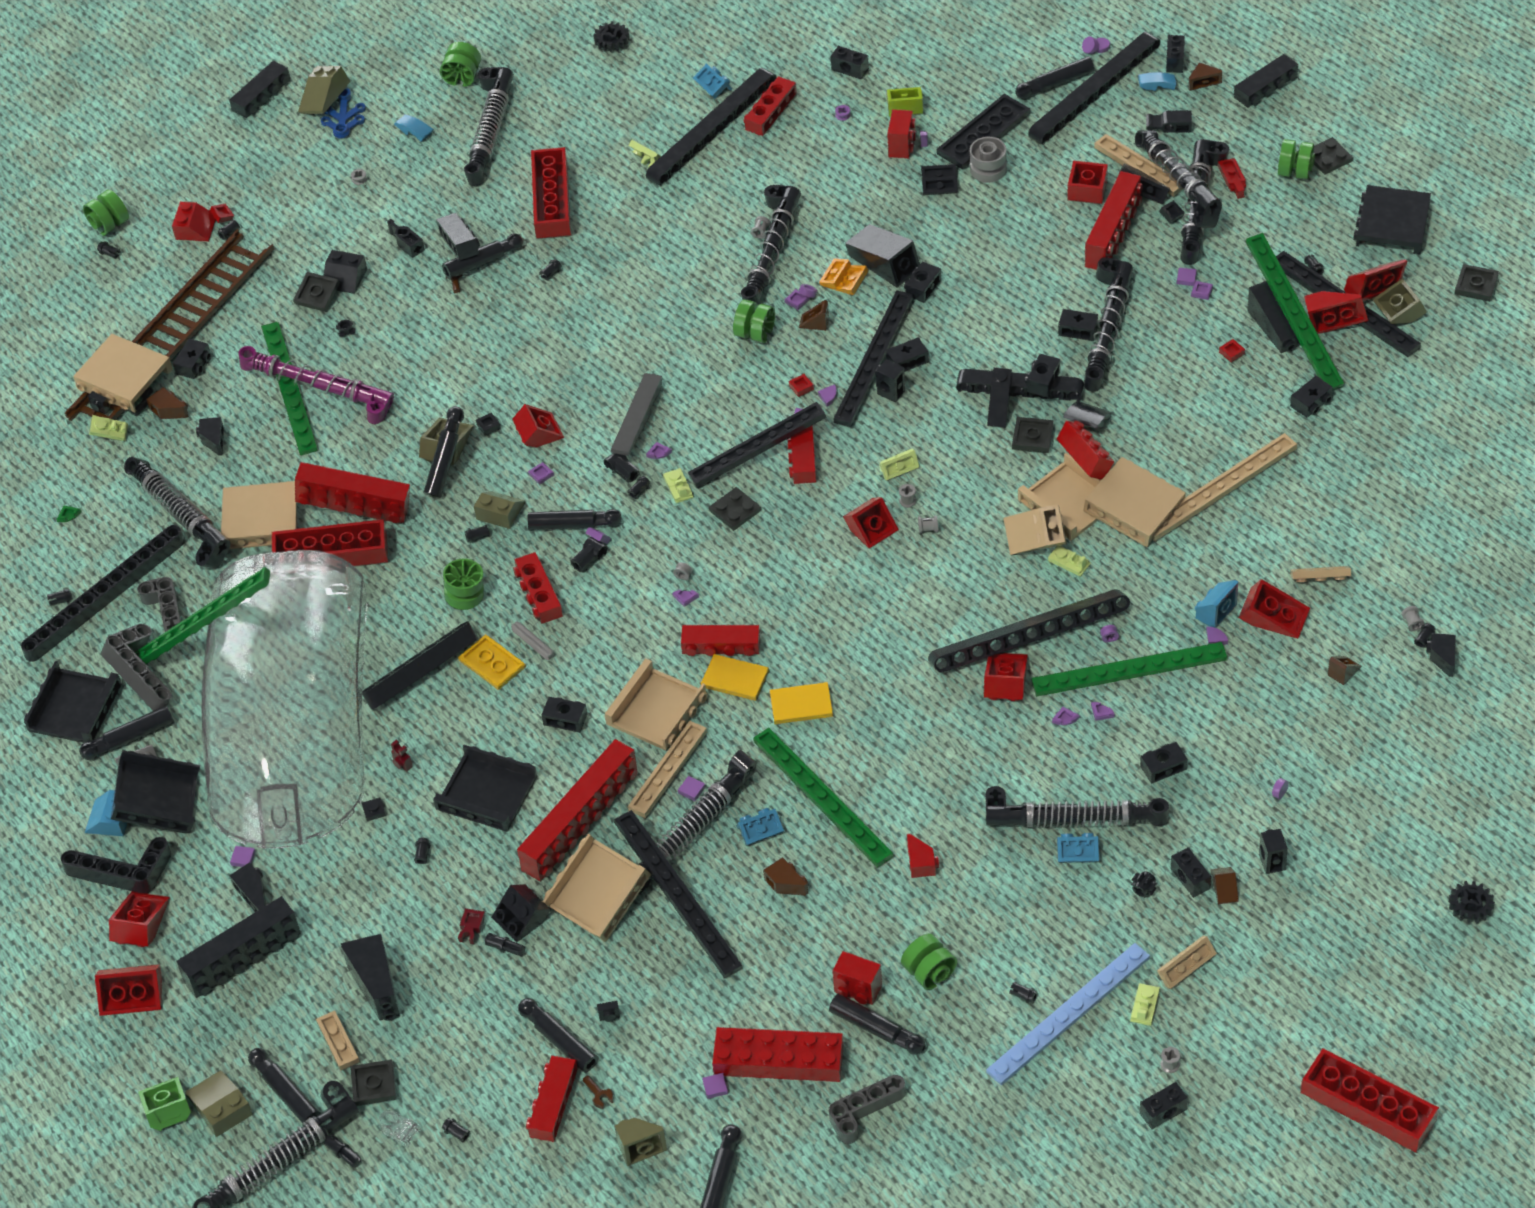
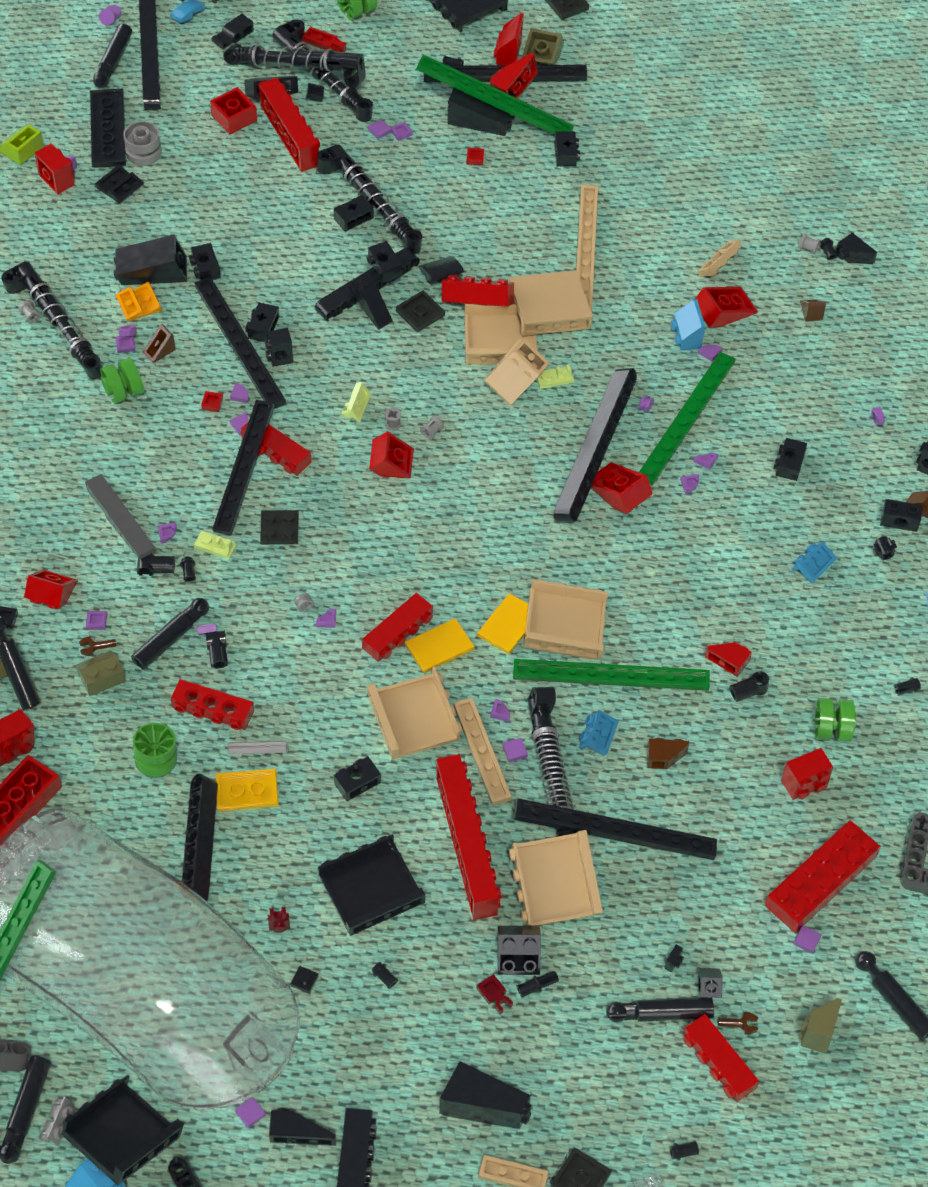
camera: 55 degrees left, 5 degrees up
(477, 533) = (105, 709): black pin -> none
(519, 489) = (95, 645): none -> reddish brown bar
(607, 1046) = (710, 982): none -> black brick
(716, 755) = (500, 711): none -> medium lavender tile
(839, 732) = (565, 619): none -> tan panel
(876, 1024) = (852, 794): black piece -> none
(906, 890) = (749, 688): none -> black piece
(1047, 814) = (738, 581): black piece -> none
(1123, 154) = (236, 76): tan plate -> none

